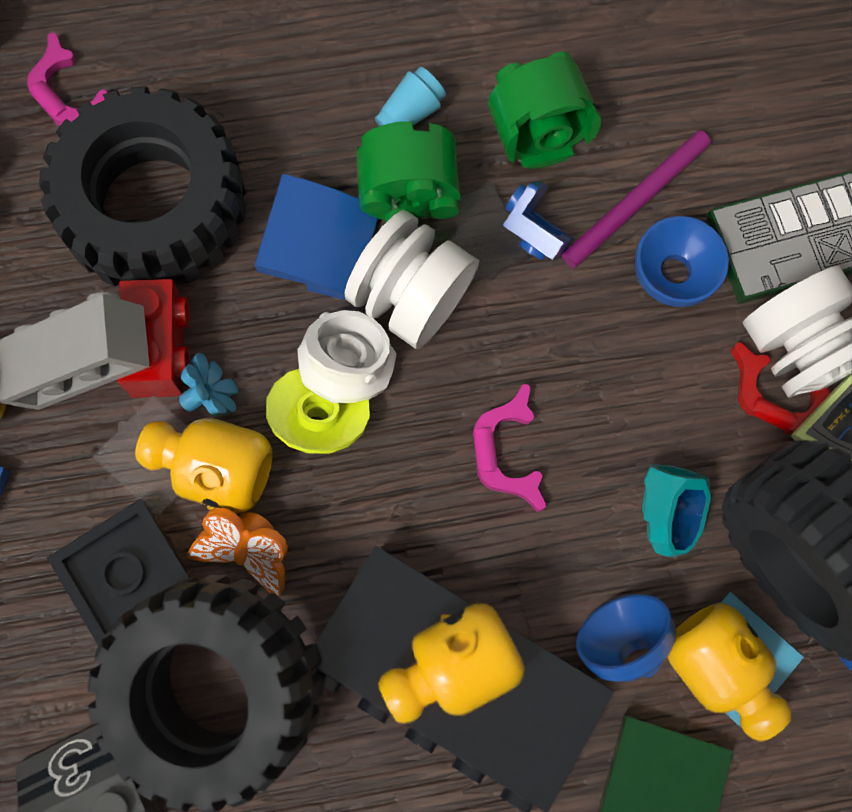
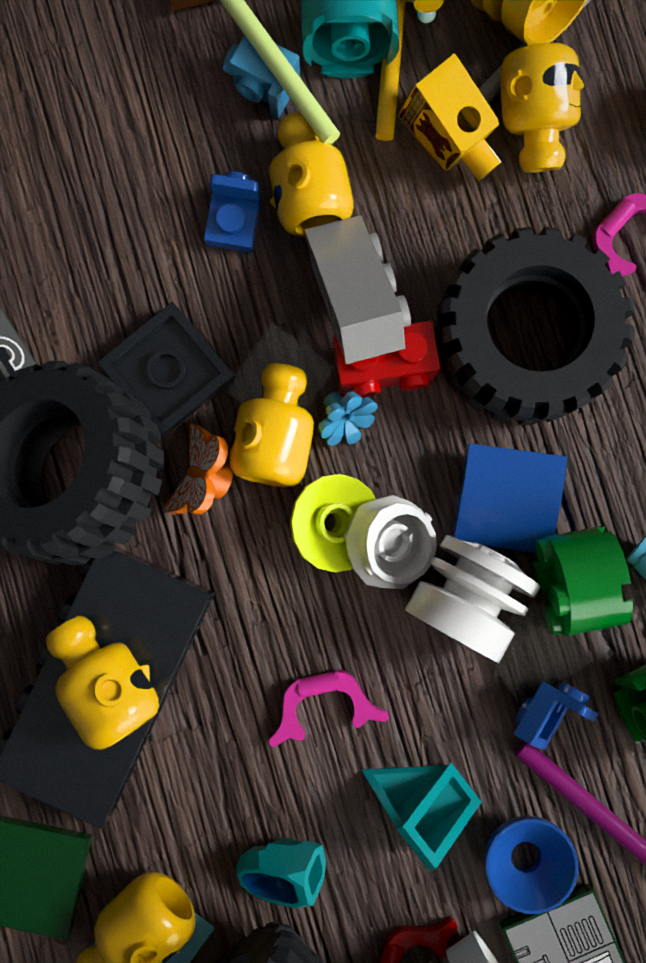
camera: 90 degrees right, 10 degrees up
(617, 356) = (425, 806): none -> teal slope
(620, 629) = (166, 824): blue piece -> none

